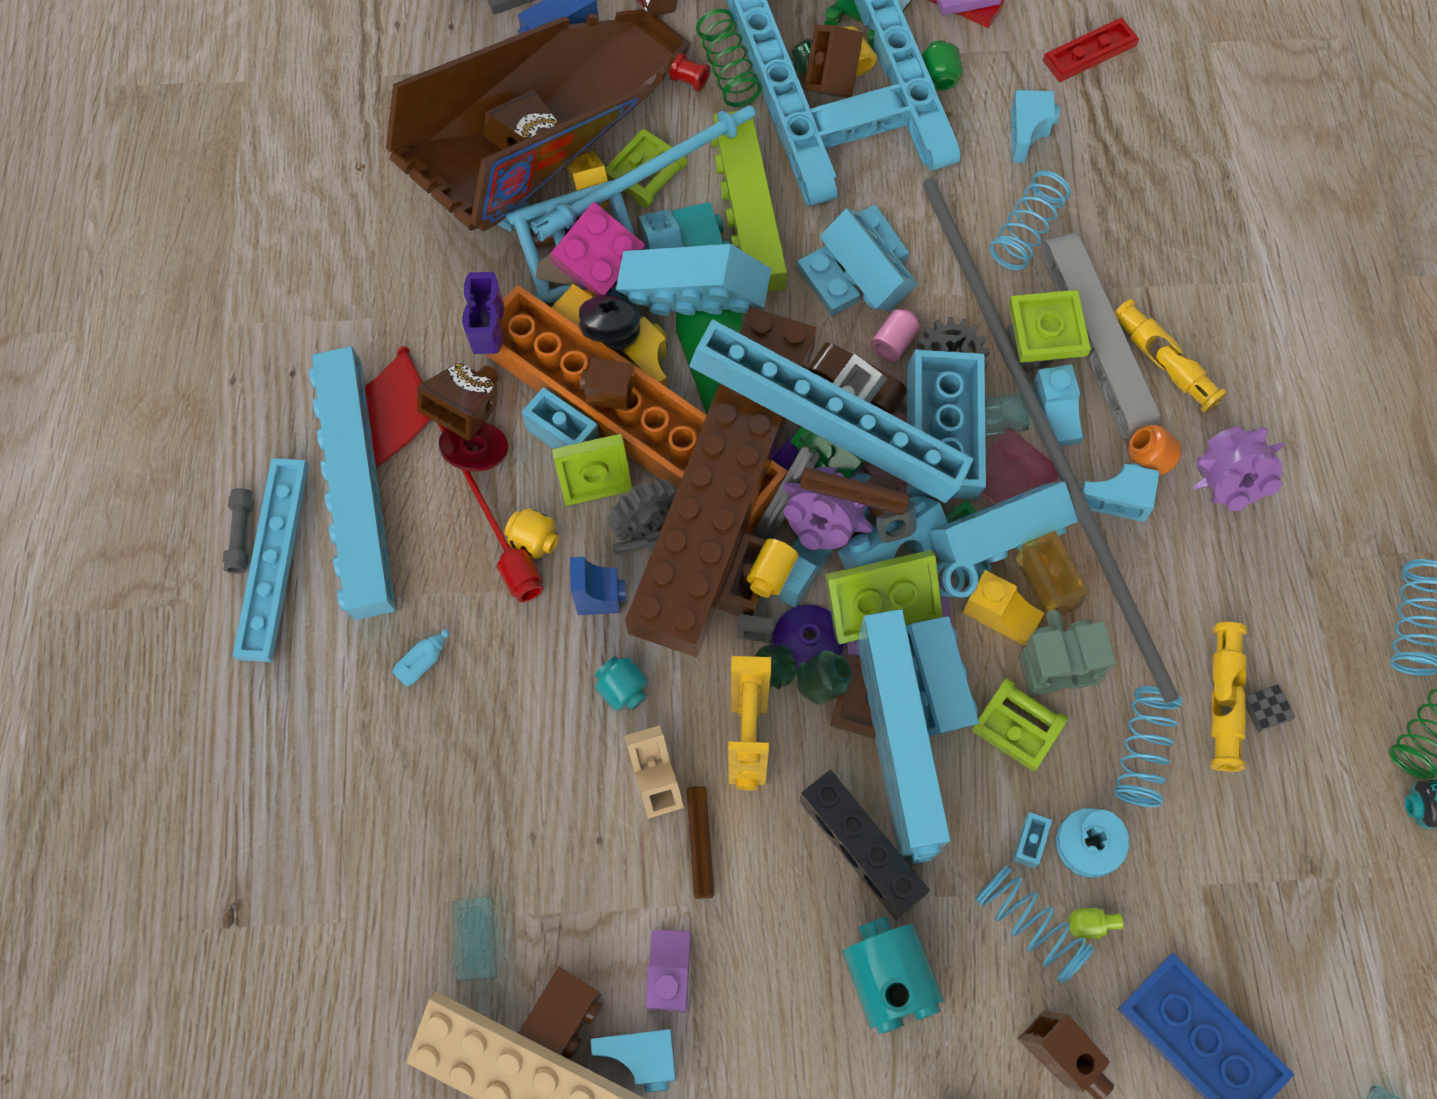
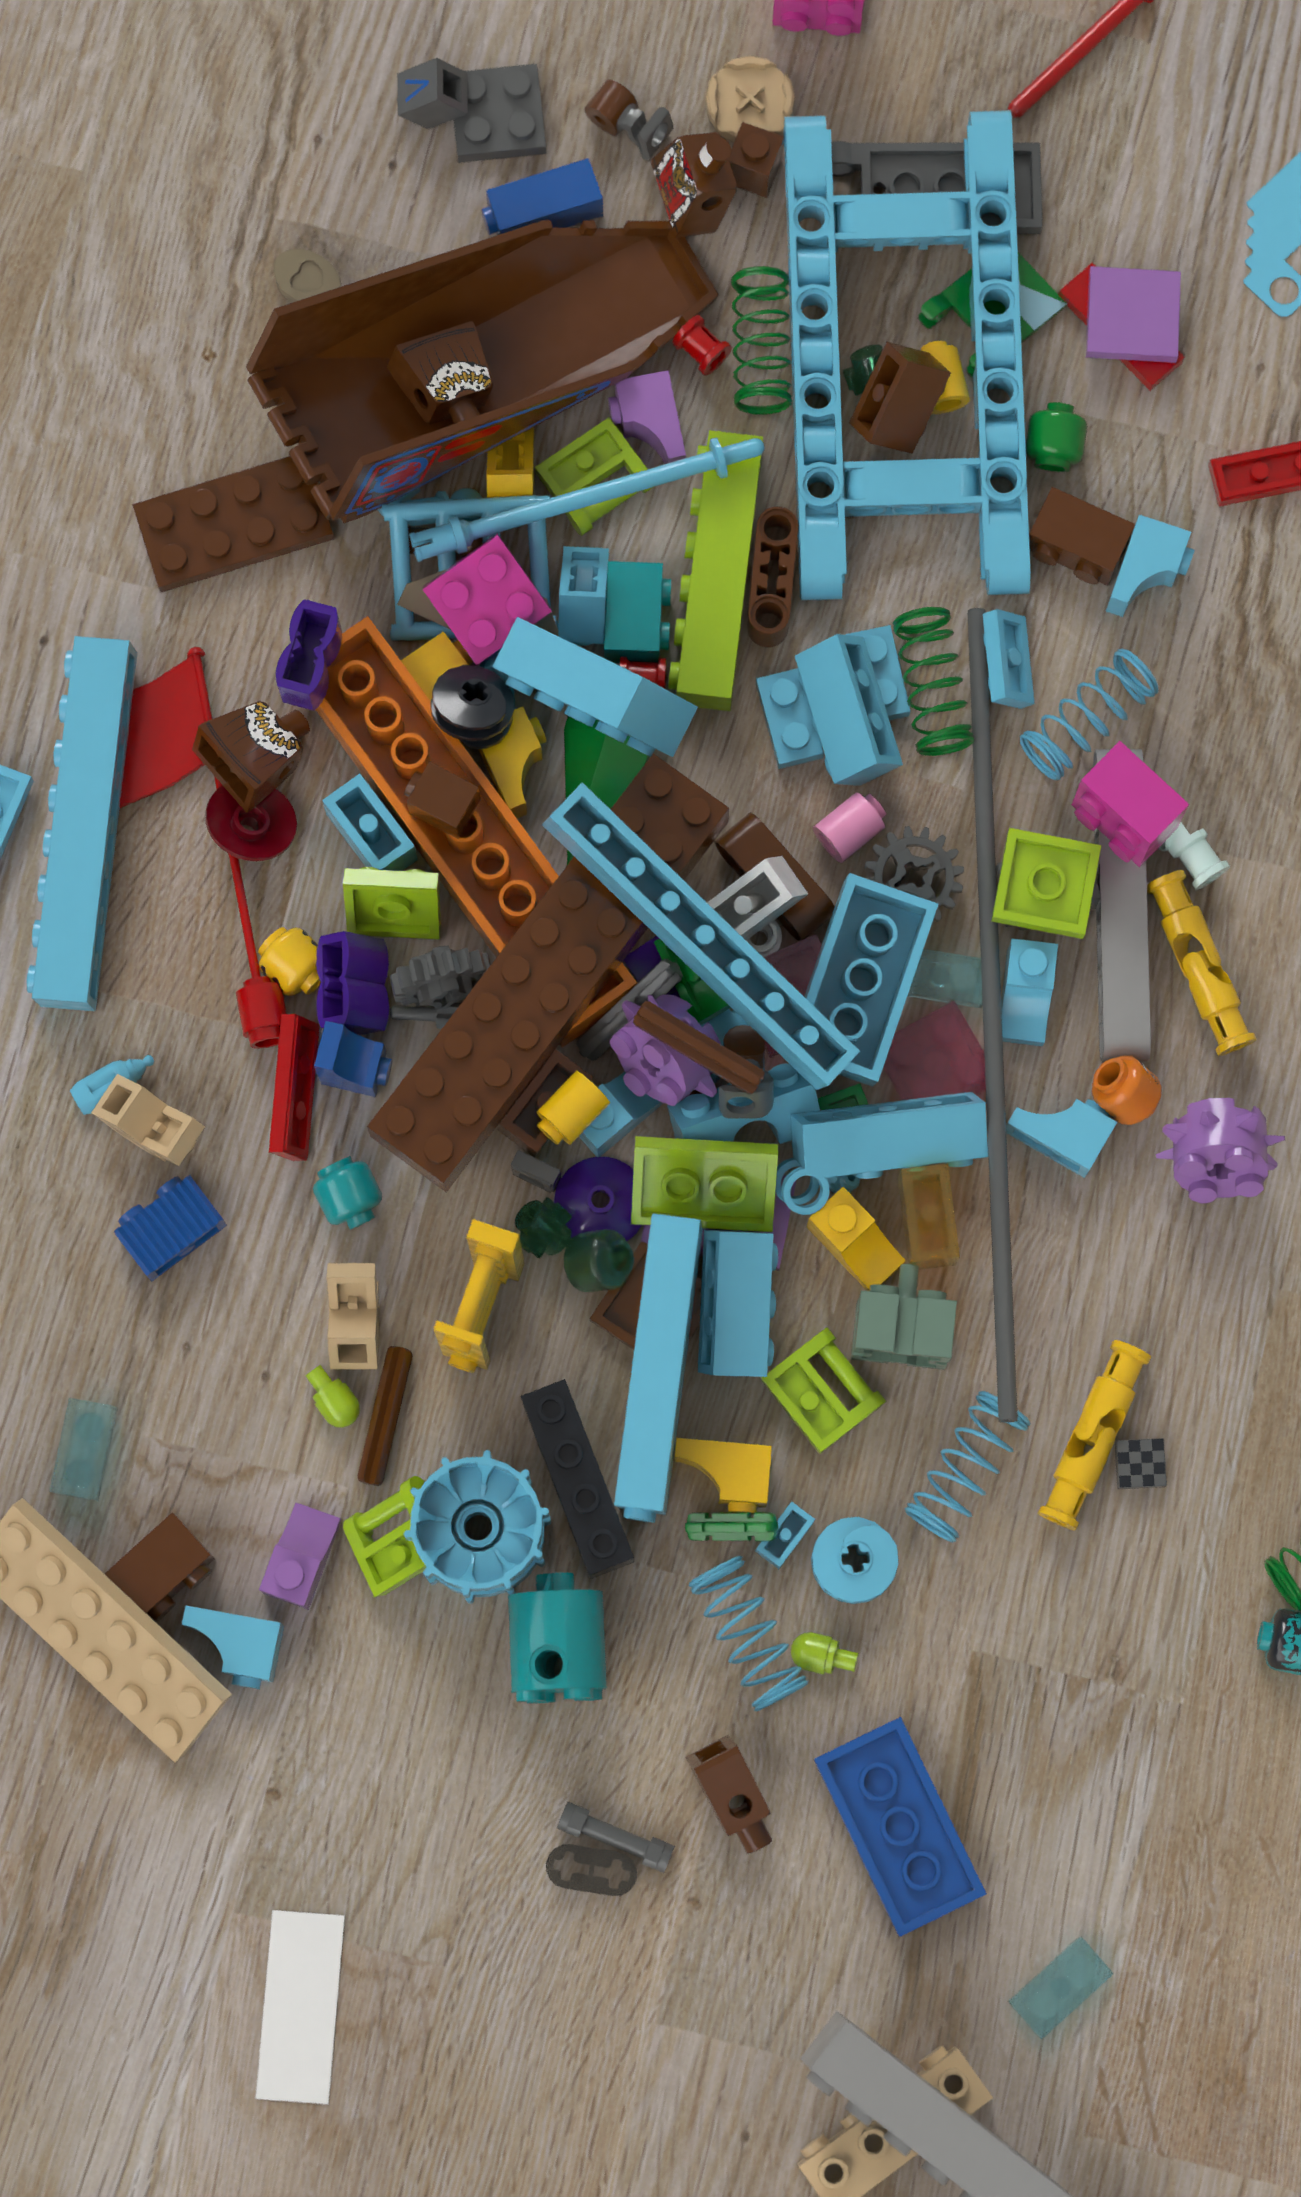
camera: 15 degrees right, 10 degrees up
(405, 262) = (230, 523): none -> reddish brown plate
(456, 675) = (147, 1120): none -> tan brick
(494, 748) = (169, 1226): none -> blue brick
(559, 621) = (294, 1087): none -> red tile
(580, 531) = (353, 982): none -> dark purple brick
(657, 841) = (333, 1399): none -> lime cylinder
(669, 118) = (649, 413): none -> medium lavender arch
(749, 940) = (392, 1557): none -> lime plate
(788, 179) = (767, 550): none -> reddish brown beam
(807, 871) = (471, 1489): none -> medium azure piece
(947, 250) = (952, 732): none -> green piece
(965, 209) = (1008, 659): none -> medium azure plate
(980, 803) = (735, 1469): none -> yellow arch
(981, 117) = (1079, 537): none -> reddish brown brick
(991, 845) = (731, 1526): none -> green axle
(1088, 255) = (1128, 805): none -> dark pink brick
(1127, 284) = (1195, 855): none -> light aqua connector

